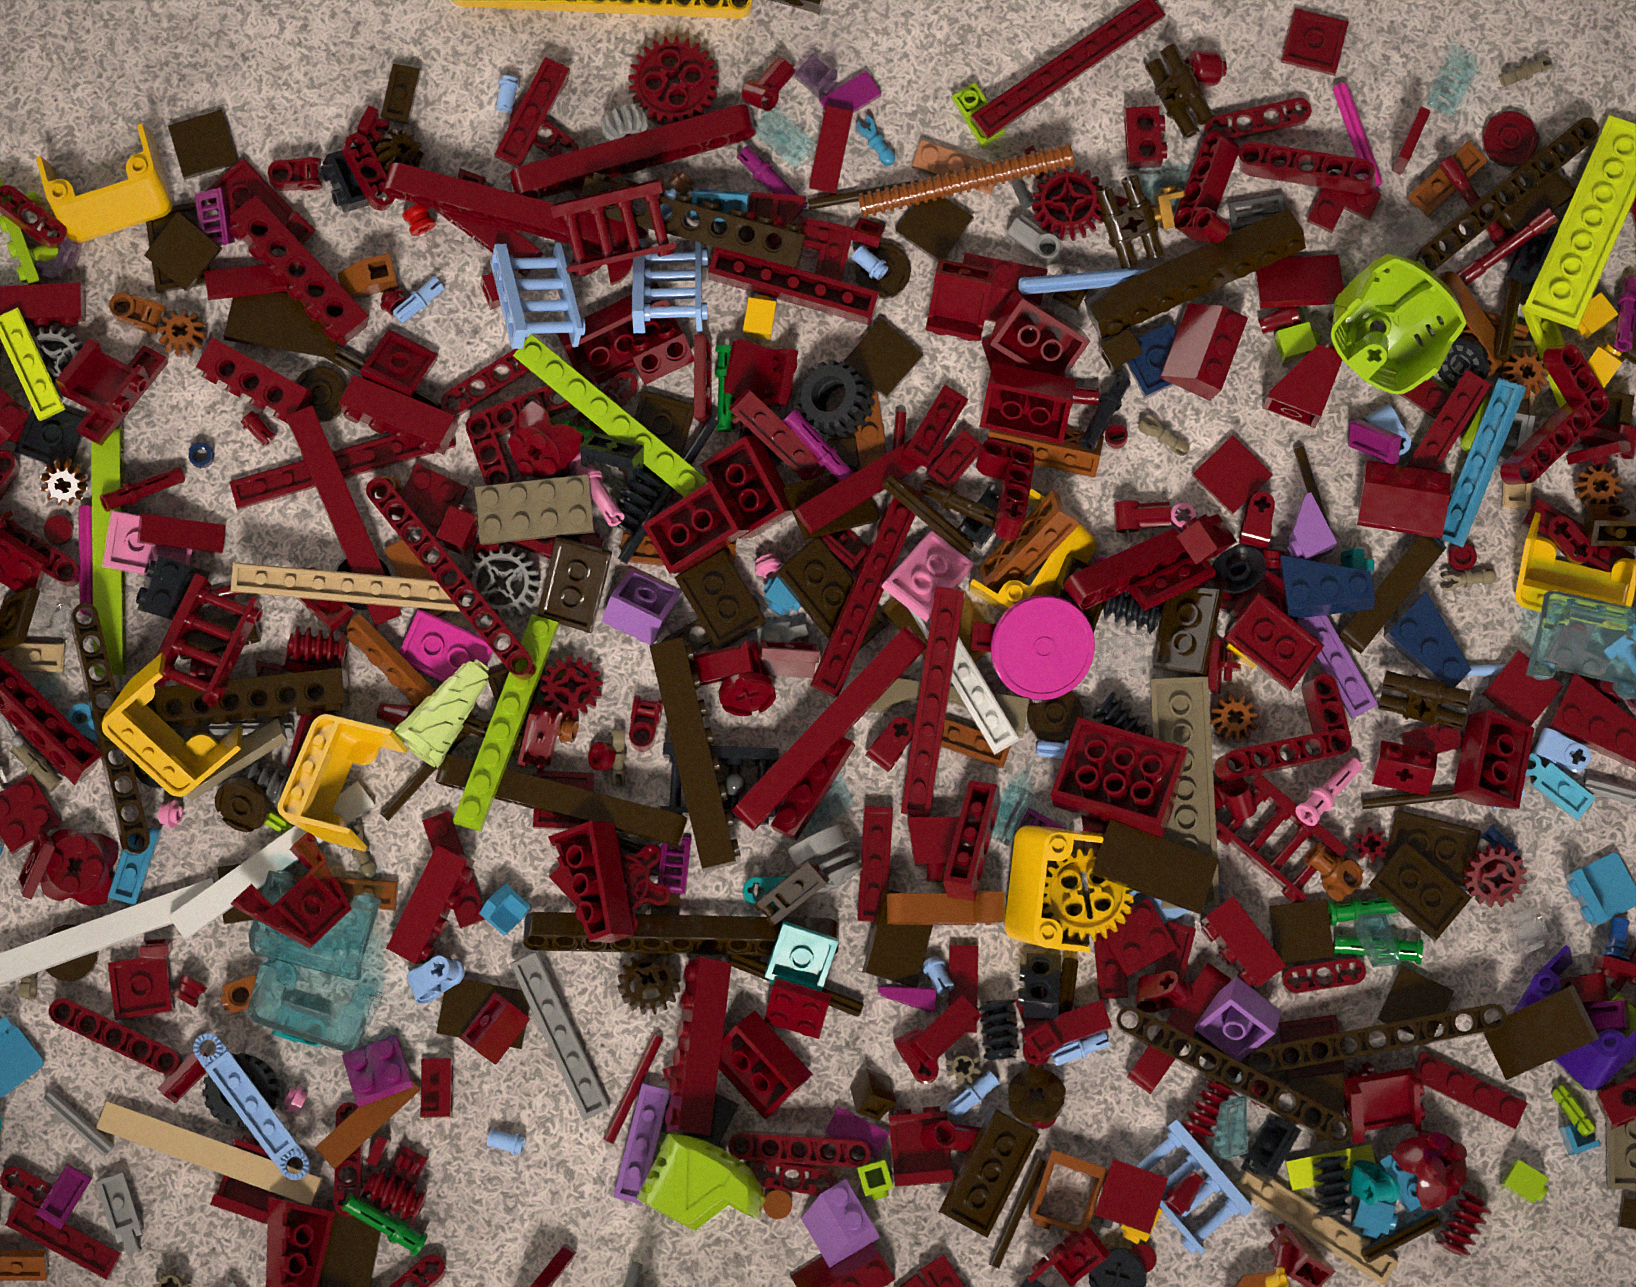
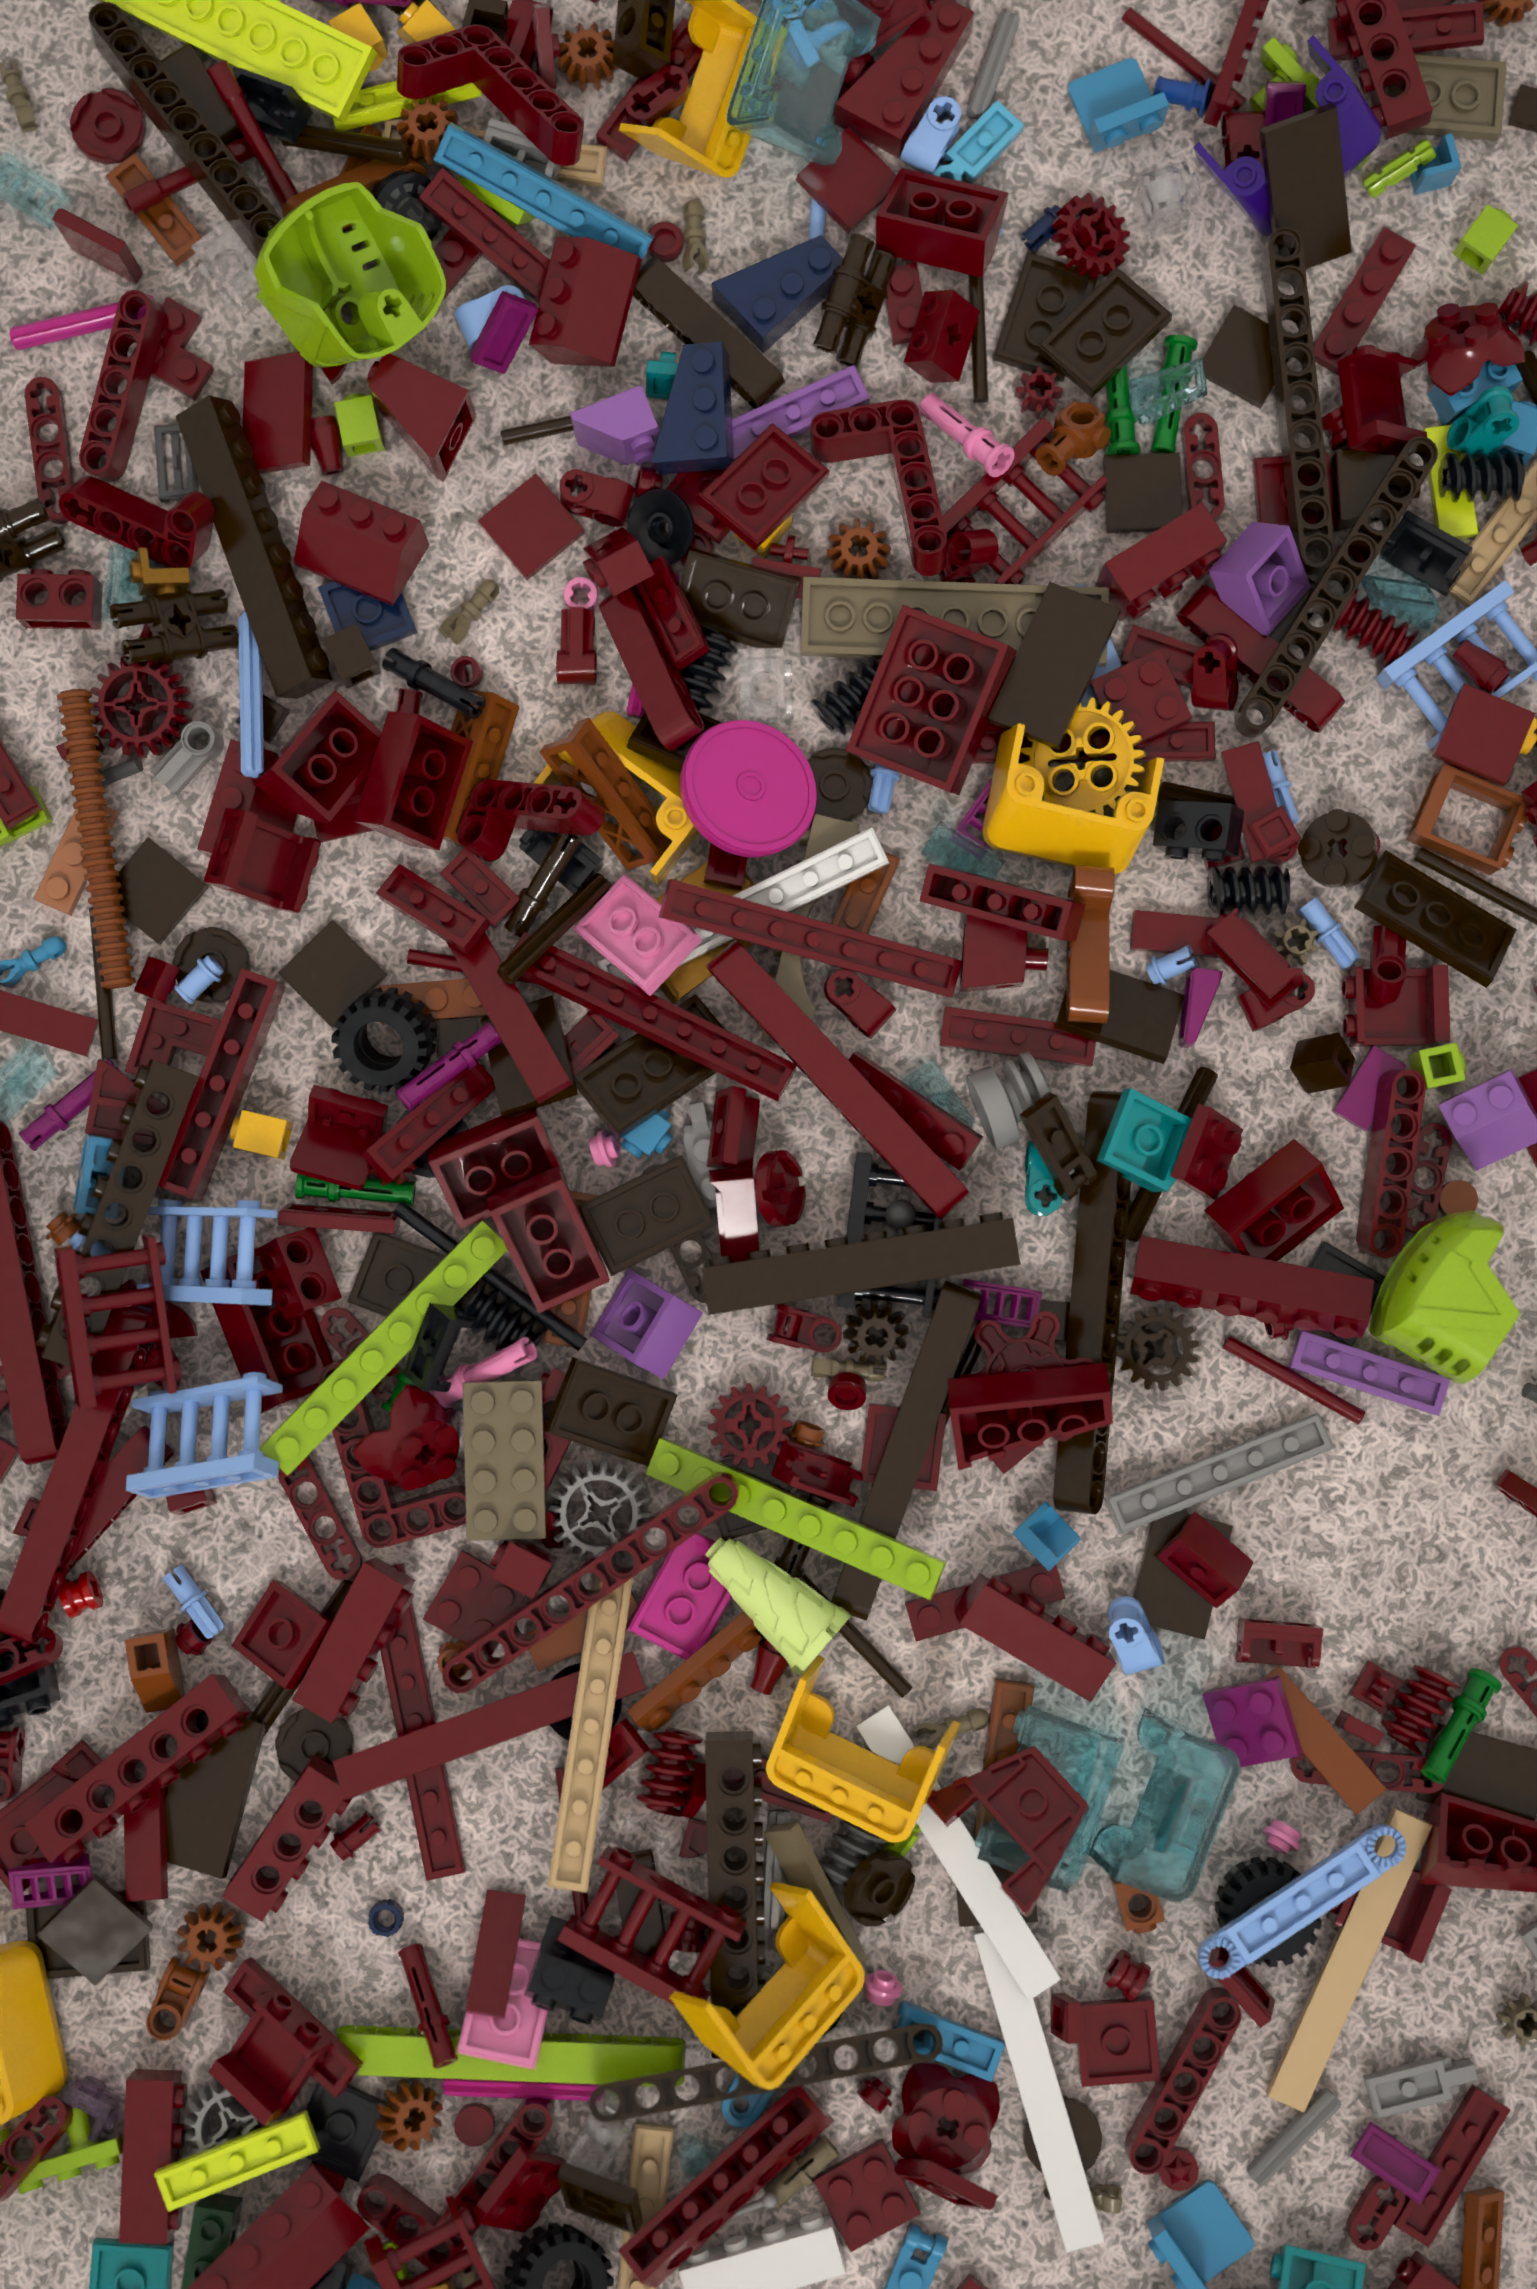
camera: 85 degrees left, 5 degrees up
(51, 1039) = (1179, 2169): none -> dark red tile
(94, 814) = (875, 2094): none -> dark red plate
(506, 1141) = (1354, 1553): light blue pin -> none
(656, 773) = (871, 1344): none -> dark brown gear

